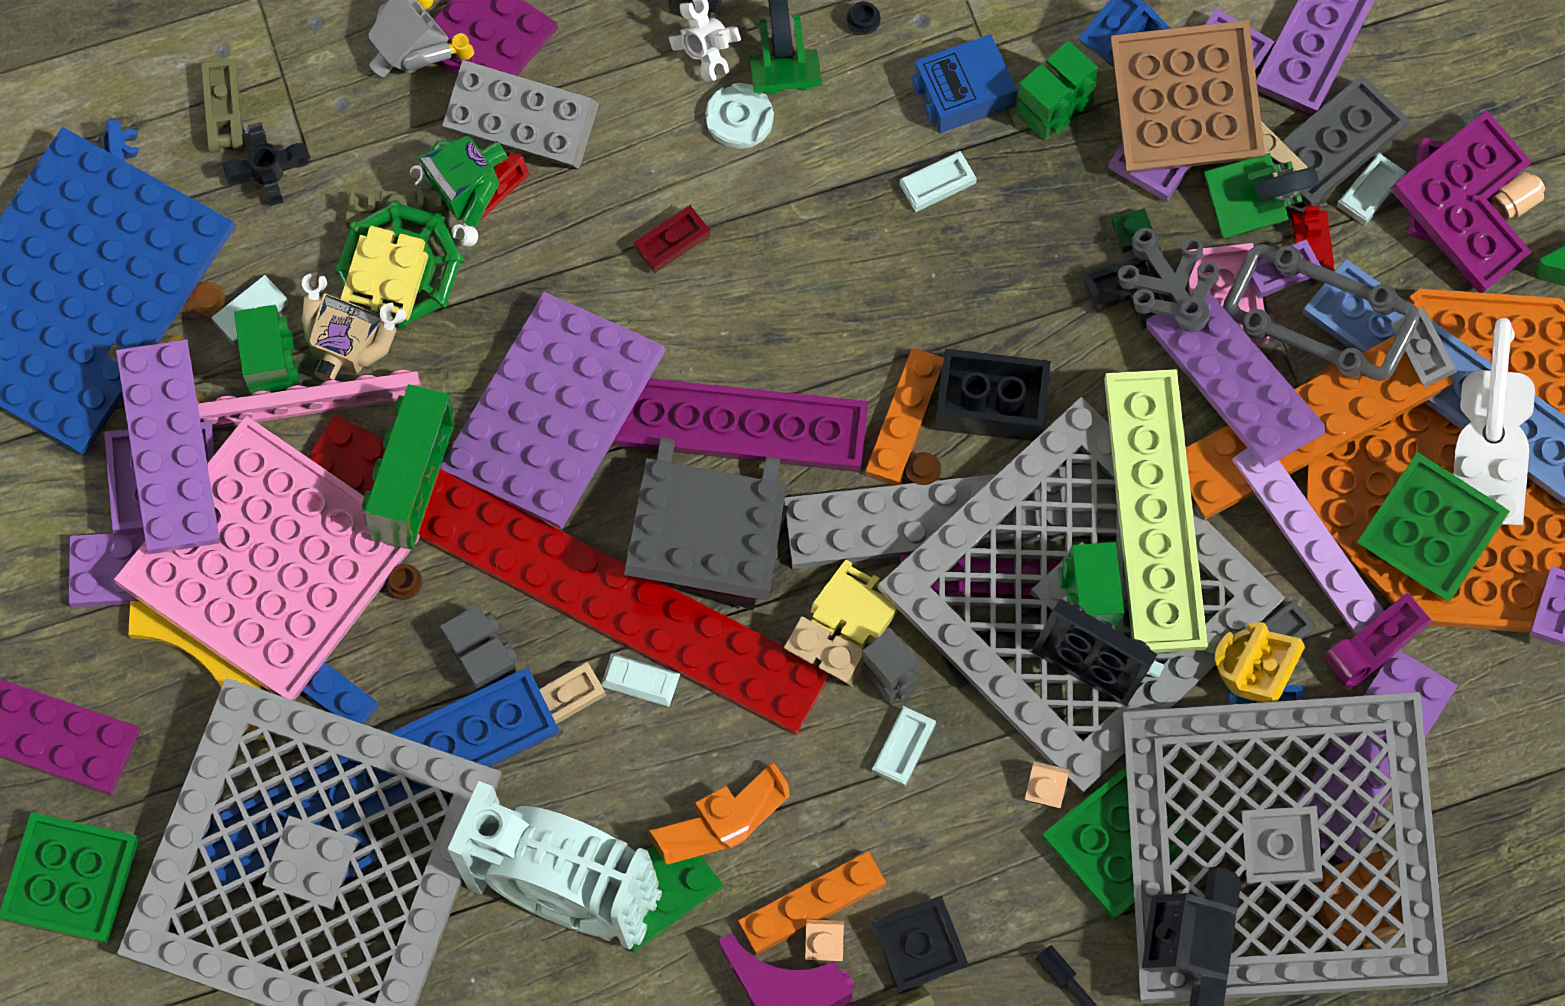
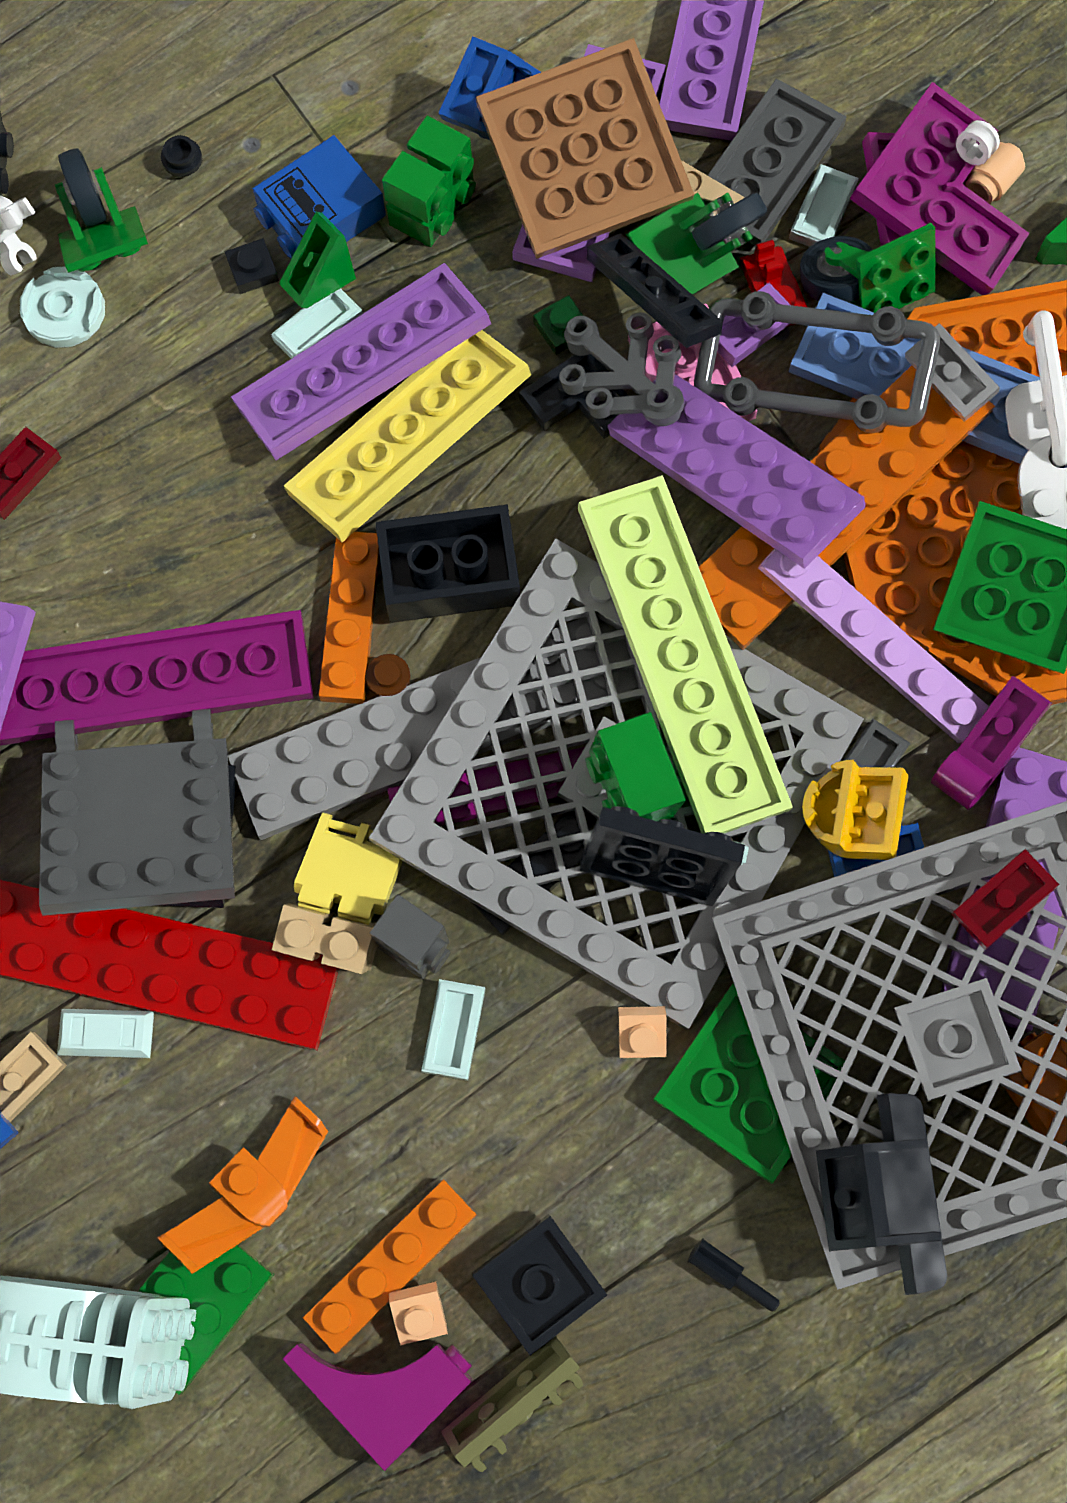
camera: 15 degrees left, 5 degrees up
(897, 120) = (251, 266): none -> black plate
(951, 135) = (318, 264): none -> green slope
(965, 219) = (361, 360): none -> medium lavender plate
(988, 283) = (406, 433): none -> light yellow plate
(1211, 223) = (654, 290): none -> black plate
(1345, 750) = (1005, 899): none -> dark red plate
(1391, 257) = (869, 277): none -> green plate
(1506, 169) = (970, 150): none -> white bush

